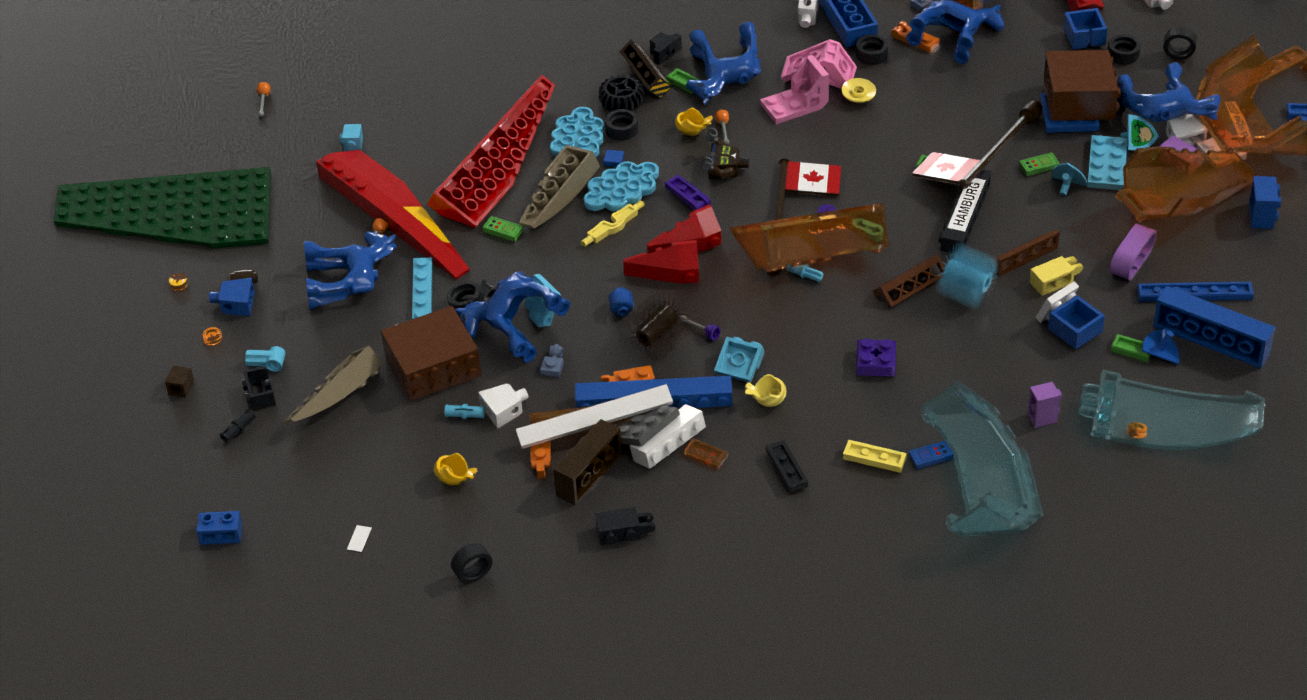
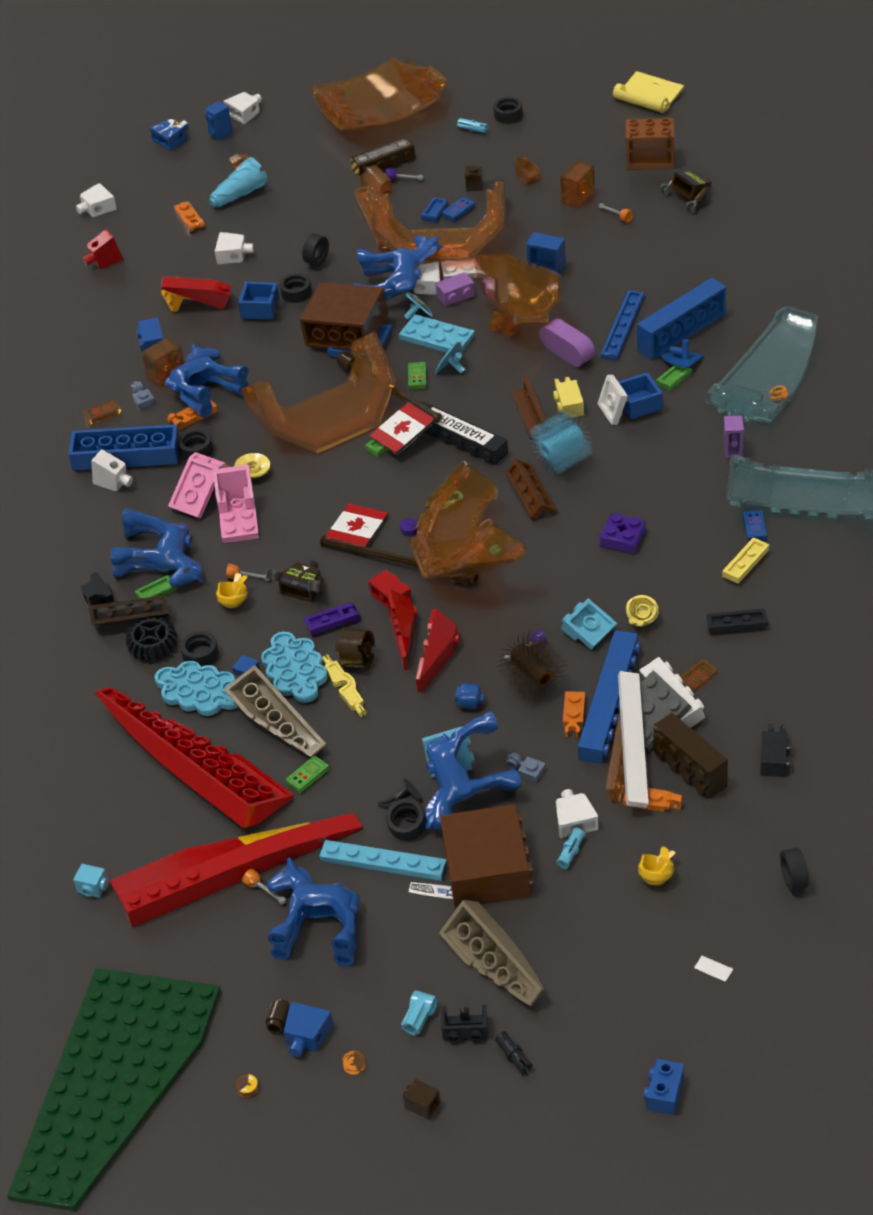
camera: 70 degrees left, 0 degrees up
(648, 213) = (355, 648): none -> dark brown brick
(733, 215) = (384, 581): none -> red brick
(946, 118) = (336, 413): none -> clear orange windscreen

